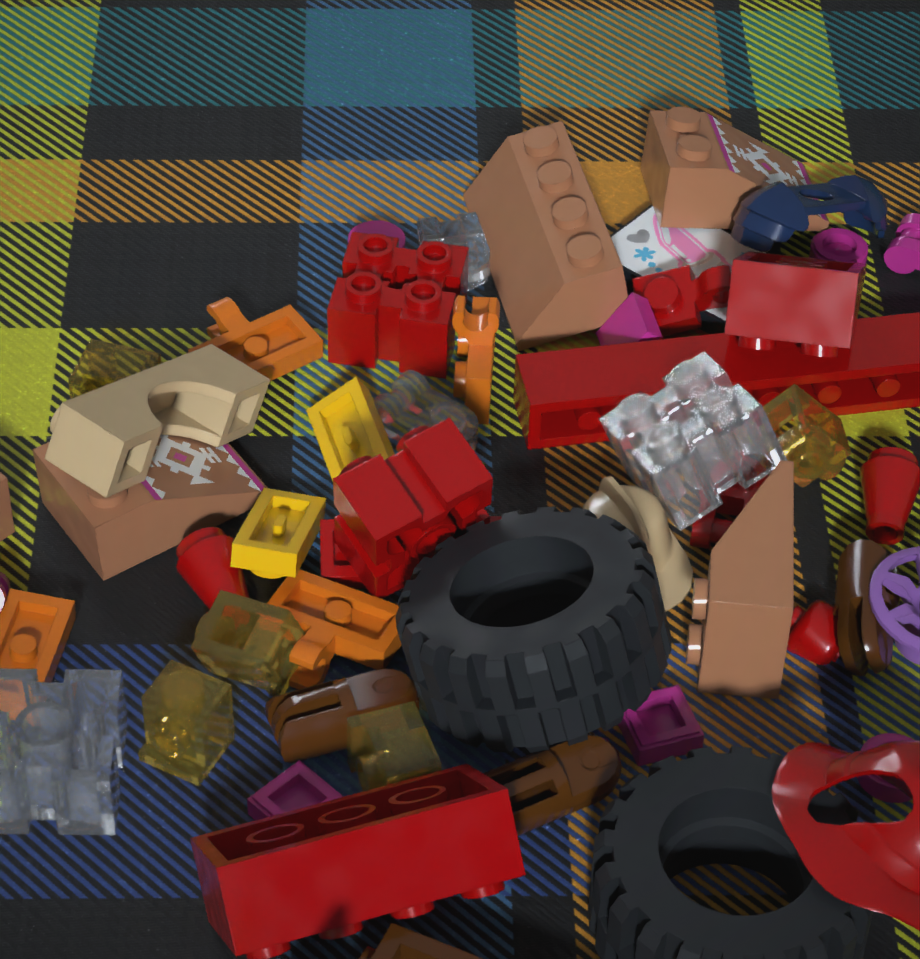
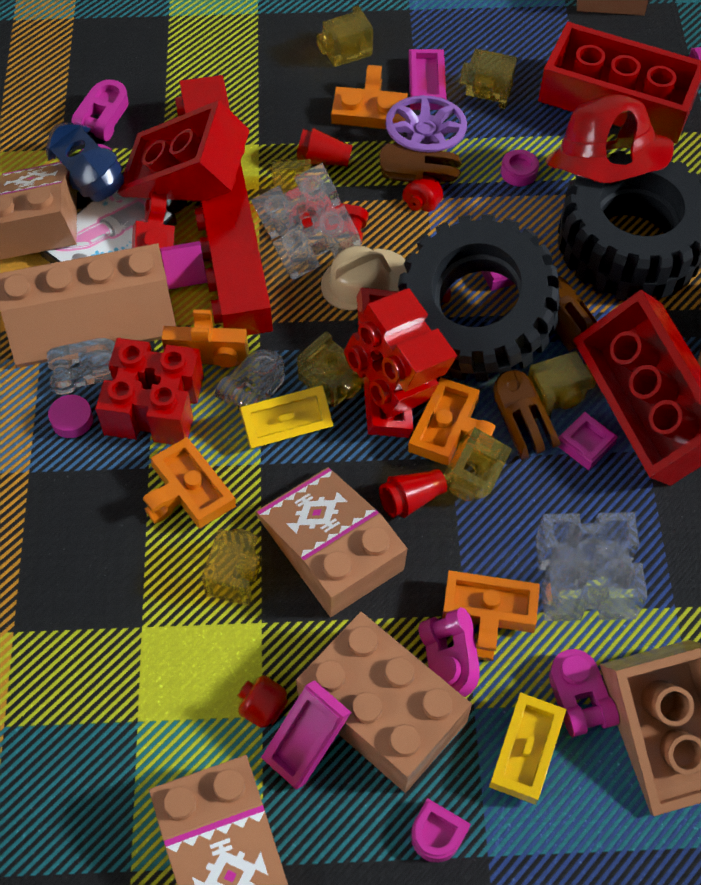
camera: 90 degrees left, 15 degrees up
(114, 430) = (350, 527): tan arch -> none
(186, 722) = (544, 492): clear yellow brick -> none
(278, 533) = (379, 452): yellow plate -> none
(748, 597) = (416, 195): nougat slope -> none

